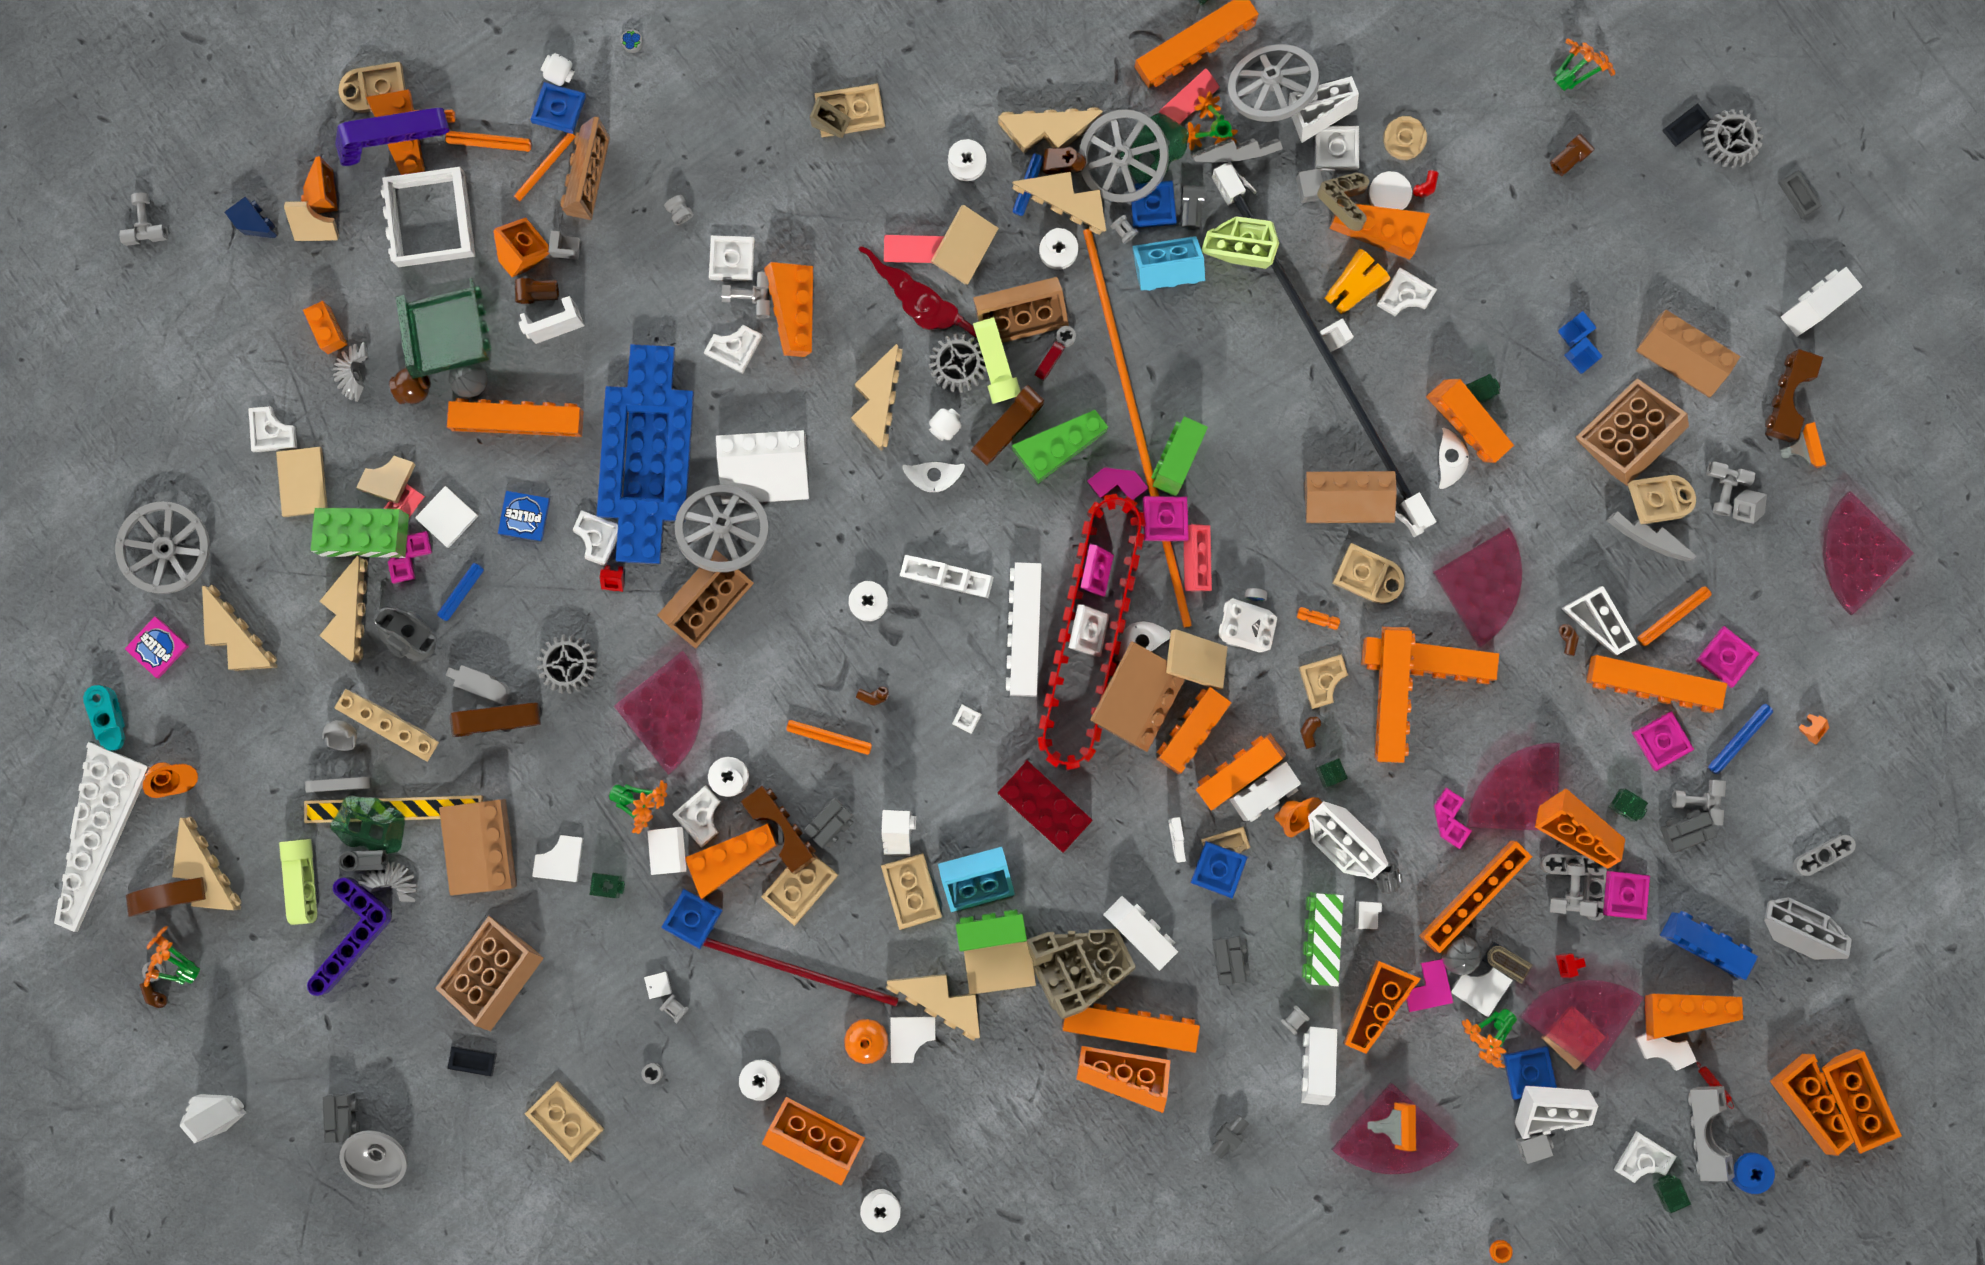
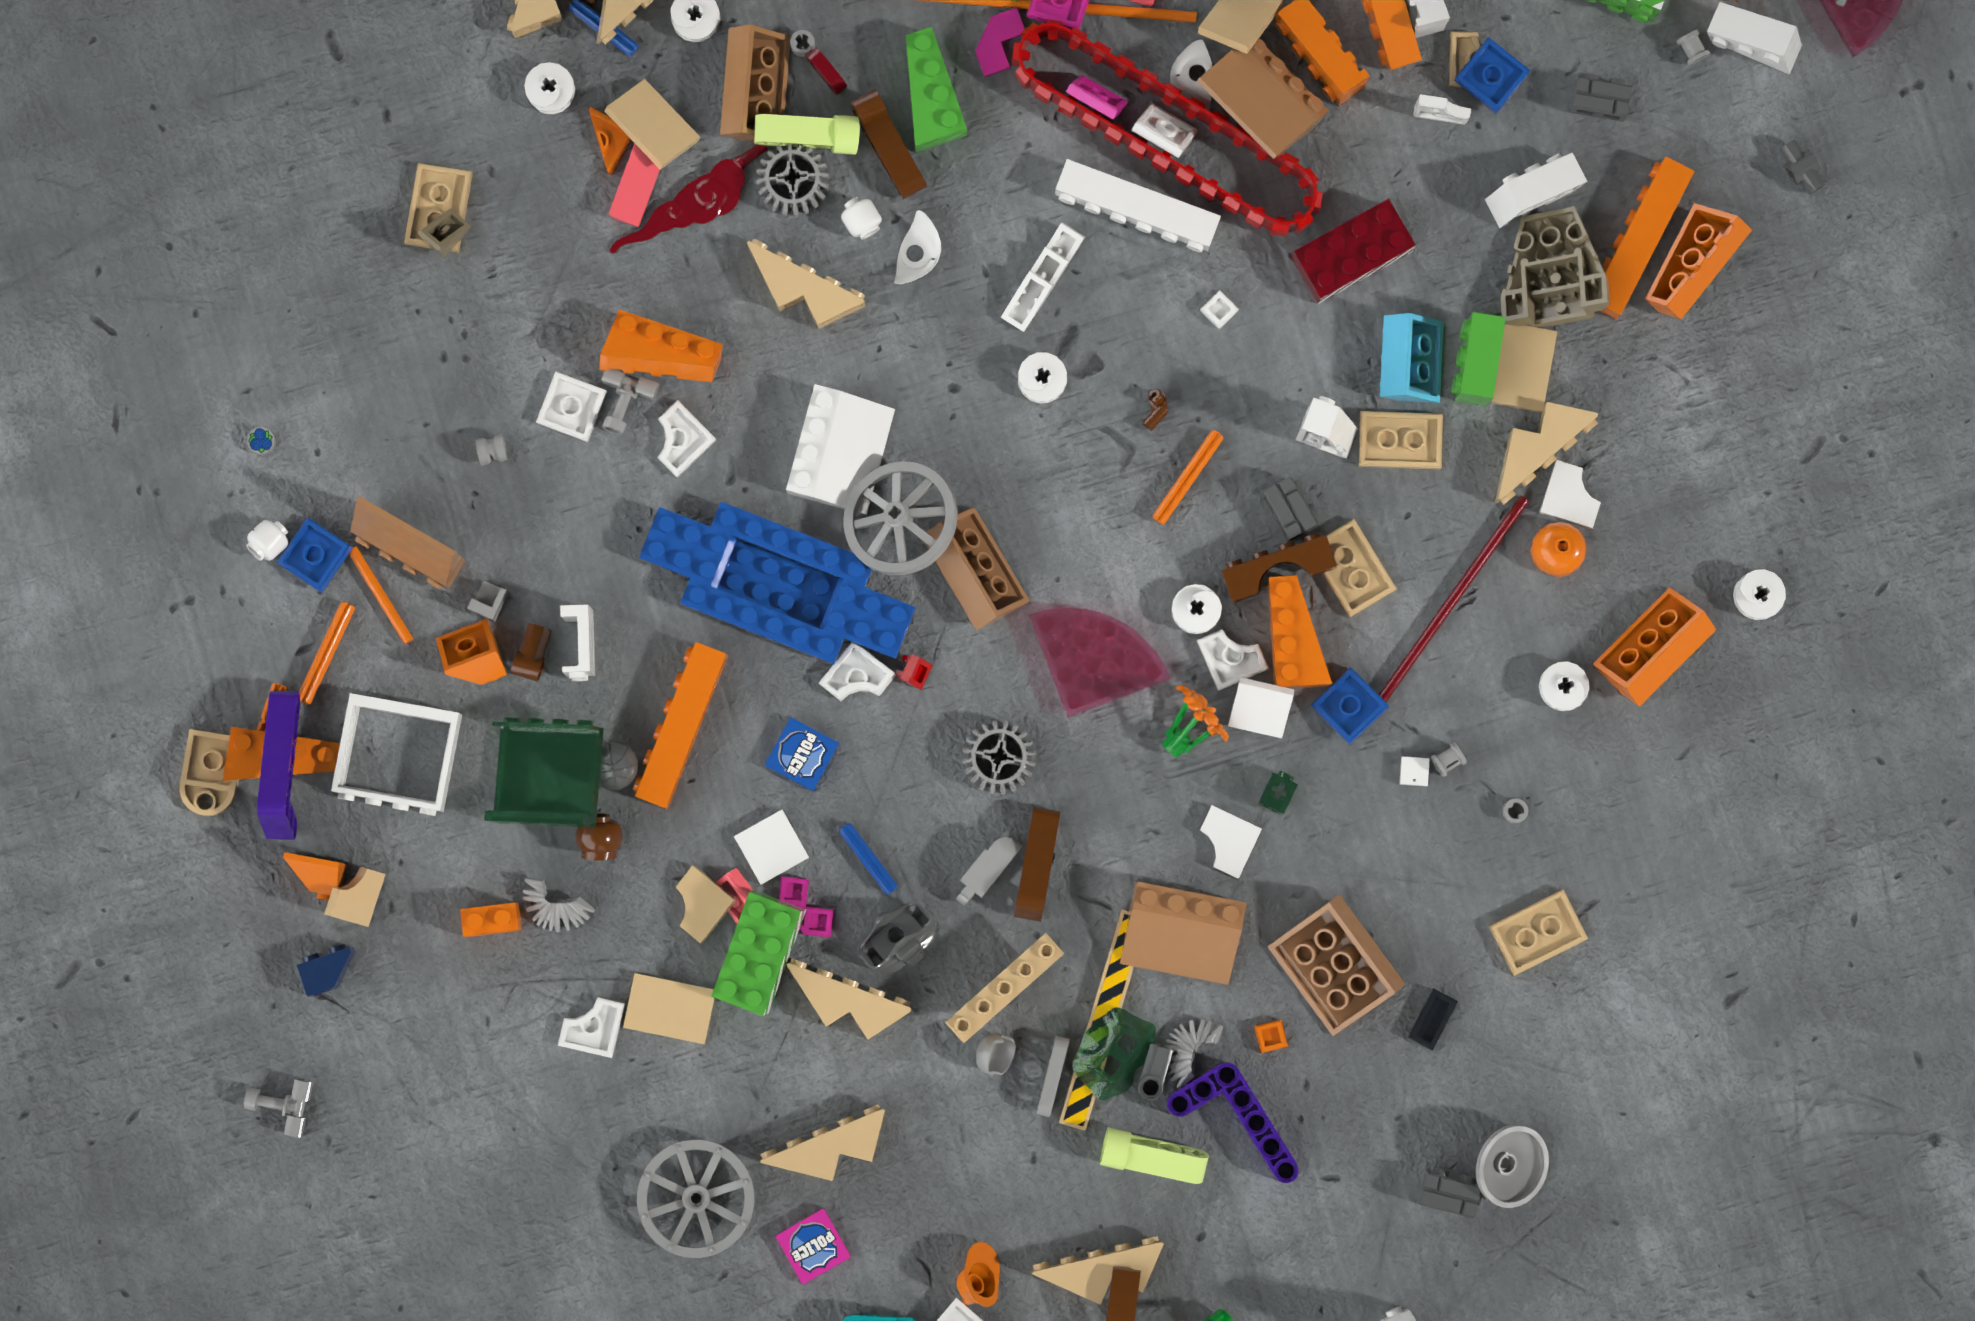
camera: 75 degrees left, 0 degrees up
(420, 940) = (1271, 1036): none -> orange tile
(942, 219) = (611, 139): none -> orange tile

